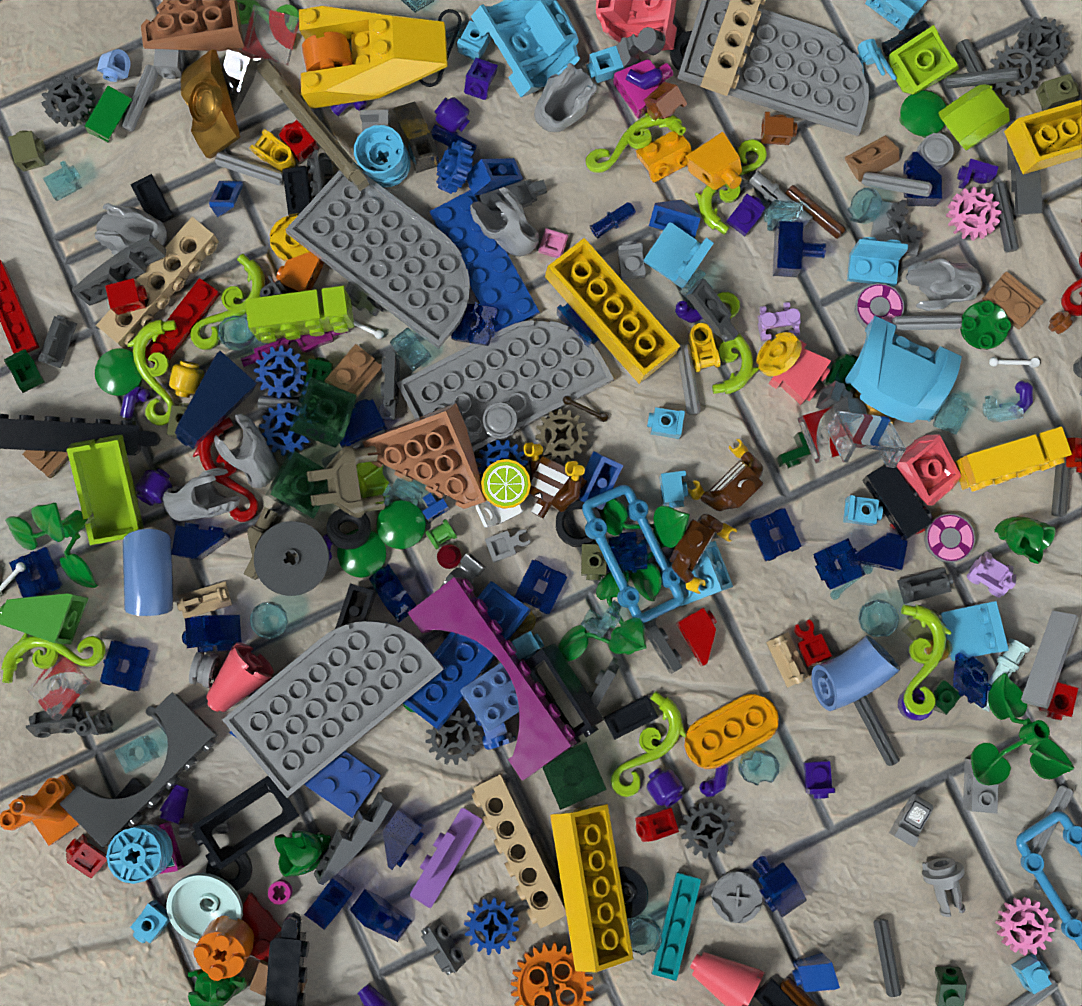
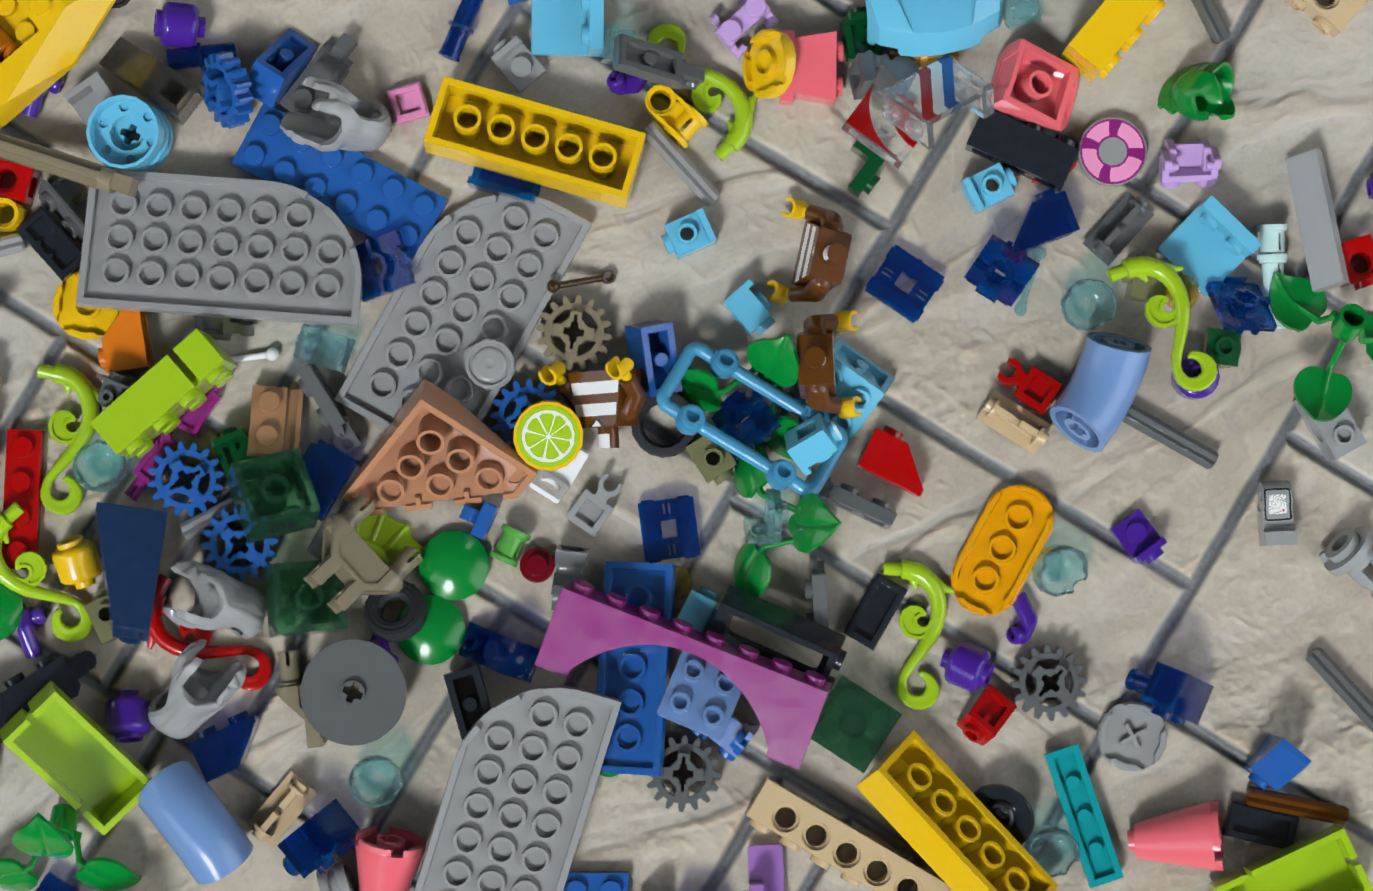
camera: 35 degrees left, 5 degrees up
(405, 491) = (434, 522): clear light blue bracket -> none
(659, 590) = (812, 442): none -> medium azure brick

